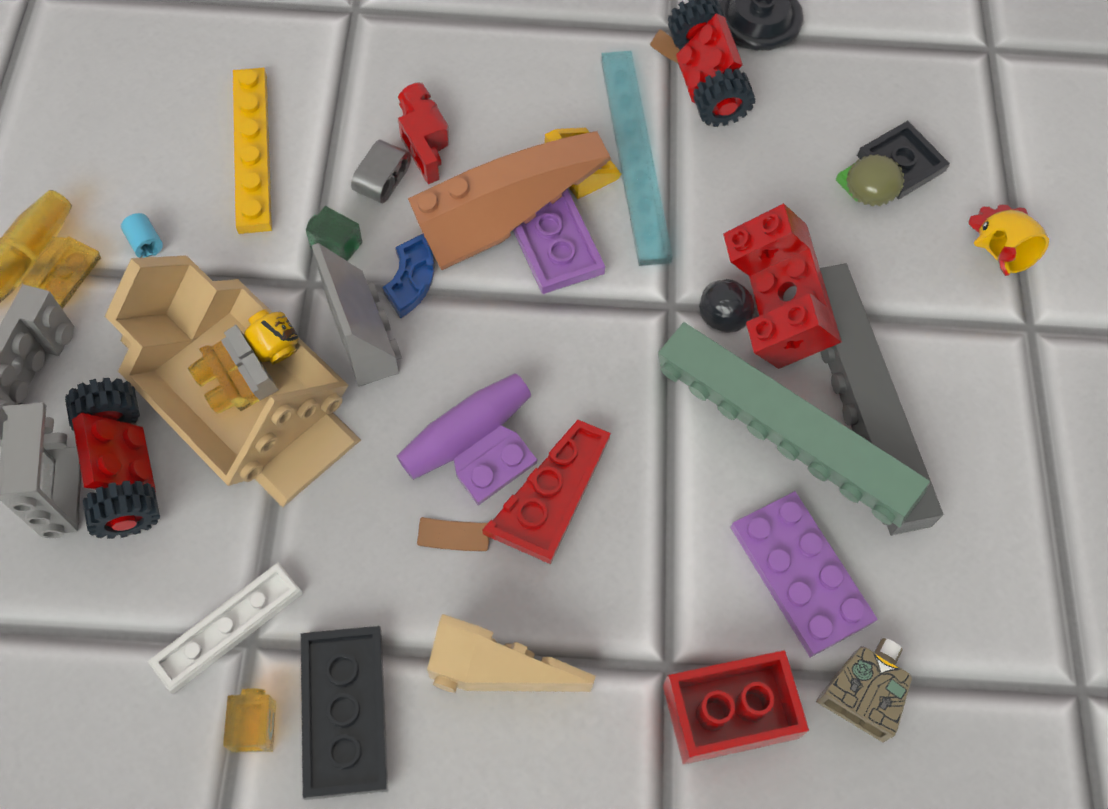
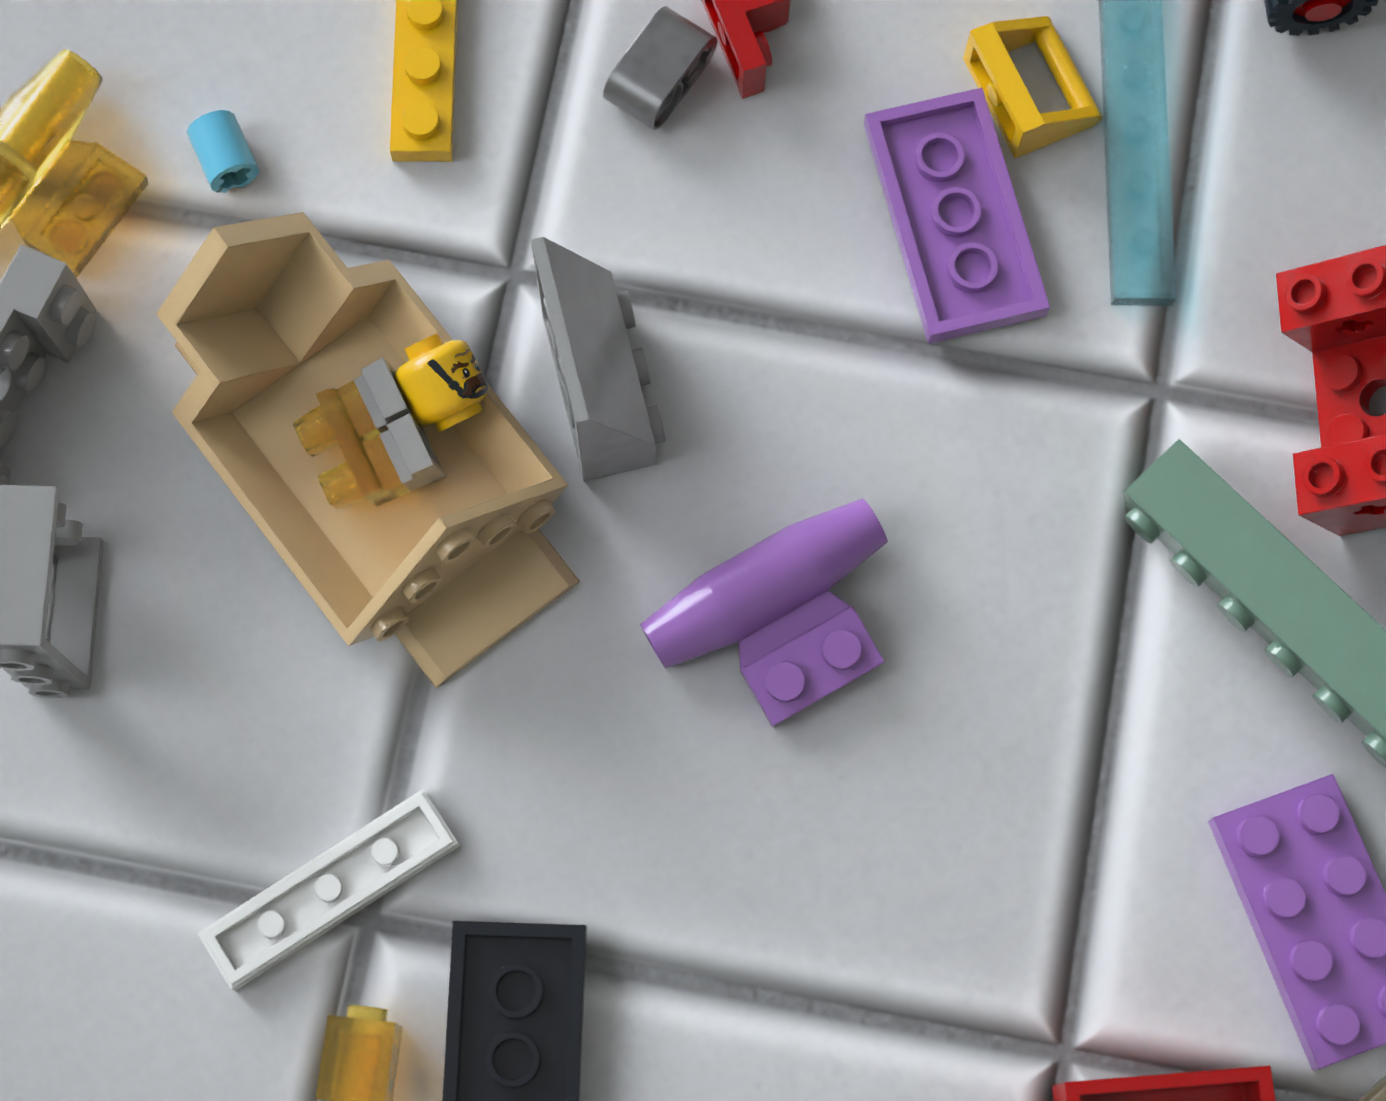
camera: 10 degrees right, 10 degrees up
(112, 458) = (157, 573): plate -> none
(334, 232) = (563, 188): clear green brick -> none
(413, 276) = (700, 280): blue tile -> none
(452, 535) = (724, 775): medium nougat sticker -> none
(473, 661) = (742, 1010): tan wedge -> none
(496, 197) = (870, 152): nougat wedge -> none
(546, 503) = (893, 737): red wing -> none
(726, 305) = (1262, 405): black piece -> none

